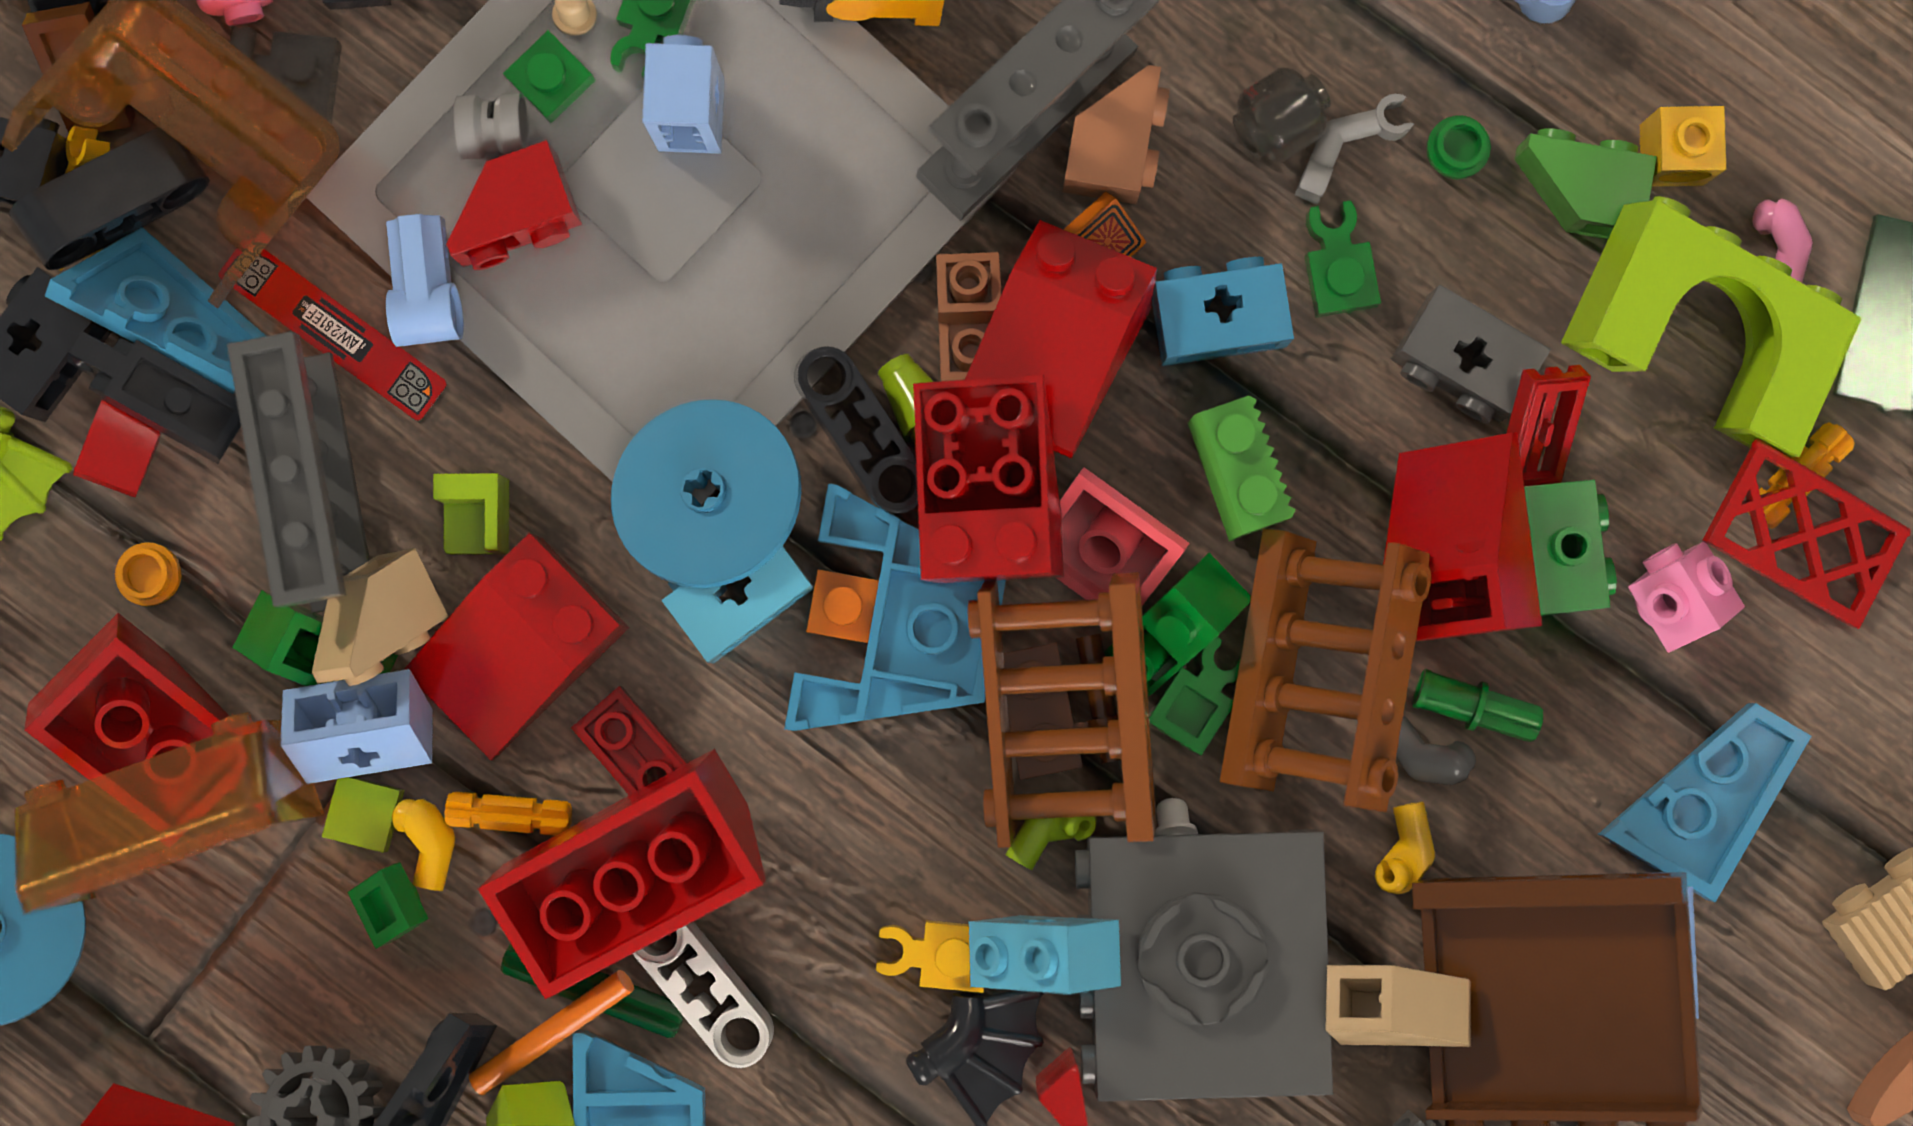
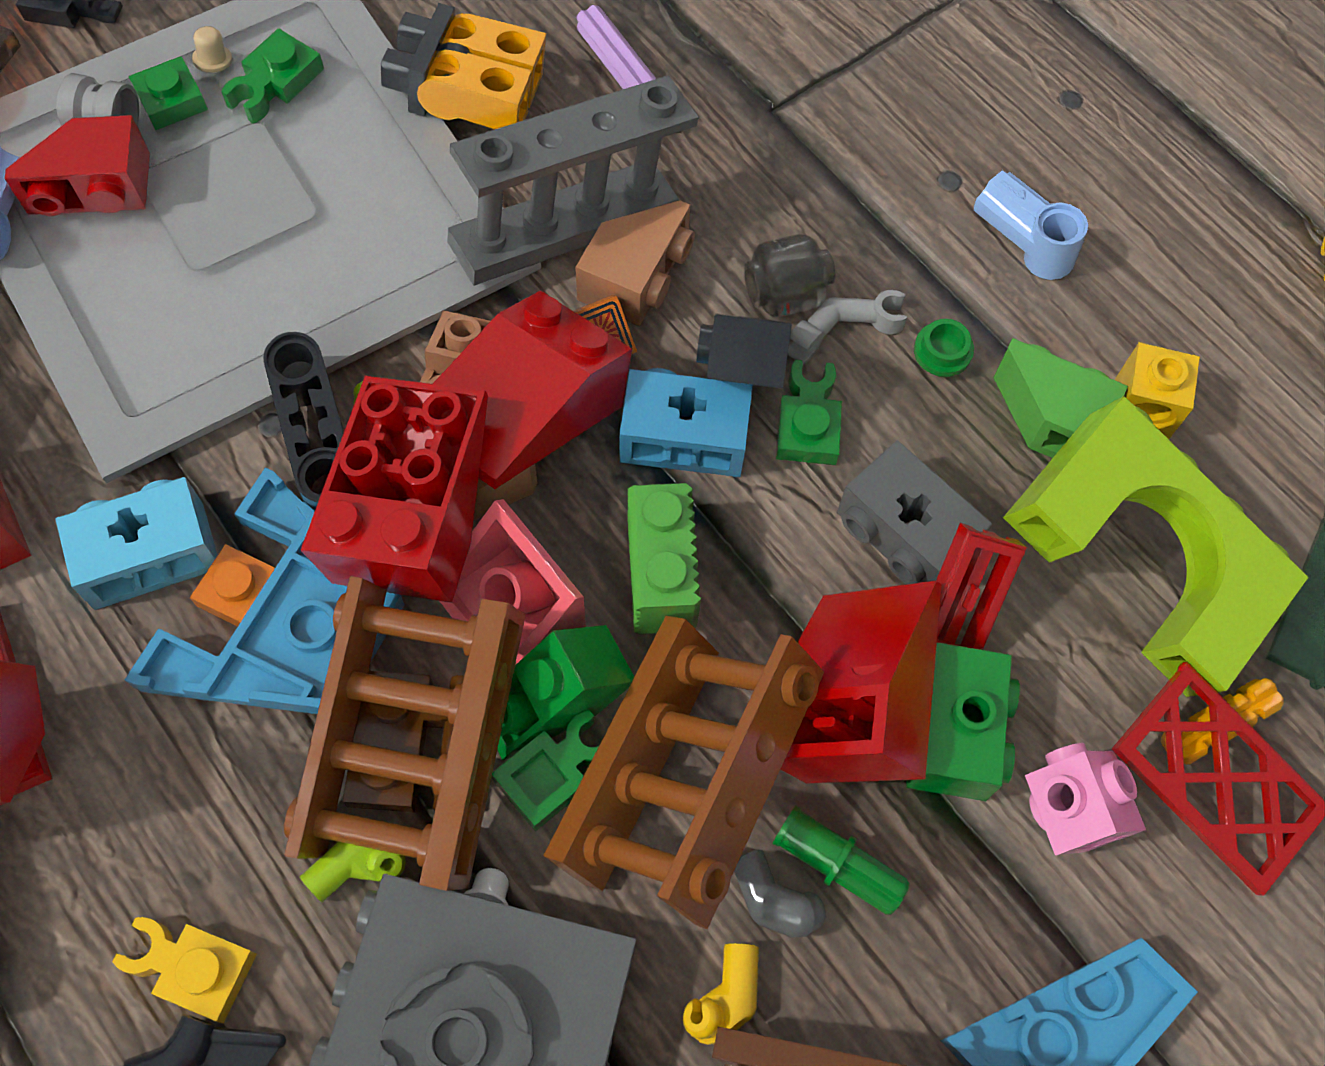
camera: 10 degrees right, 20 degrees down
(683, 96) = (261, 113): light blue brick -> none
(731, 532) = (143, 441): dark azure piece -> none
(1045, 954) = (287, 984): medium azure brick -> none
(1267, 228) = (745, 350): none -> black brick
(1789, 232) = (1240, 485): bright pink arm -> none

